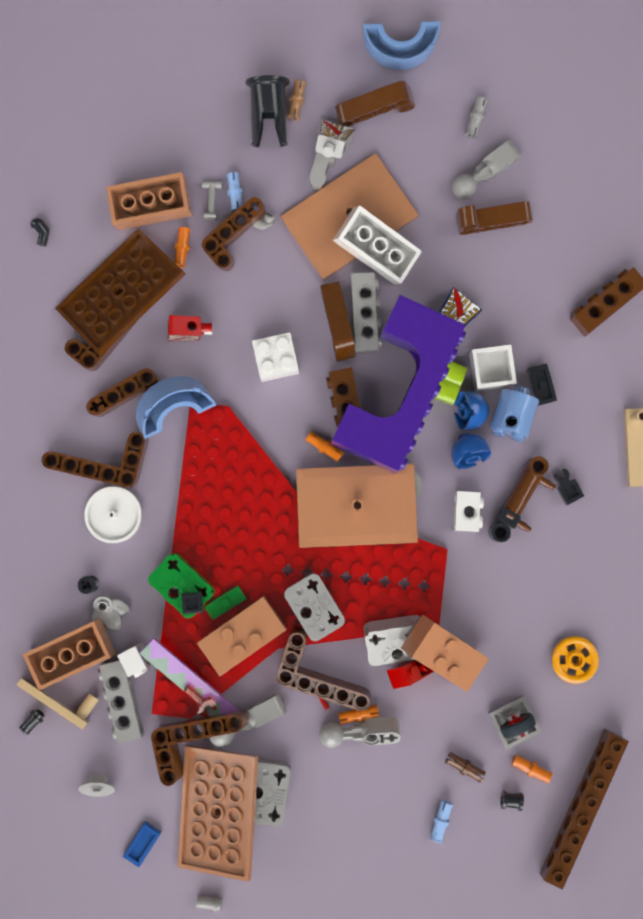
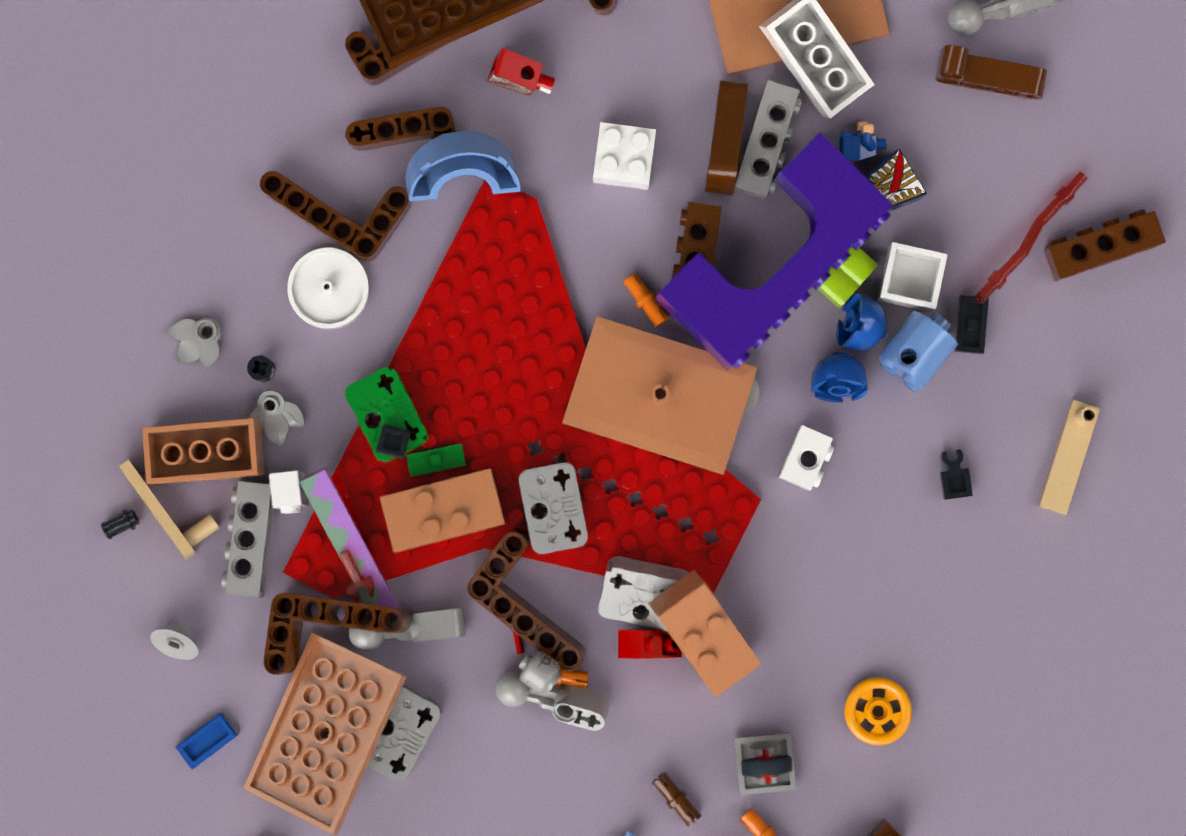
camera: 25 degrees right, 0 degrees up
(37, 582) = (194, 343): none -> light grey plate
(345, 718) = (539, 671): none -> light grey head
(427, 293) = (860, 144): none -> blue piece
(510, 513) = (883, 466): reddish brown piece -> none
(569, 280) = (1062, 197): none -> clear red bar

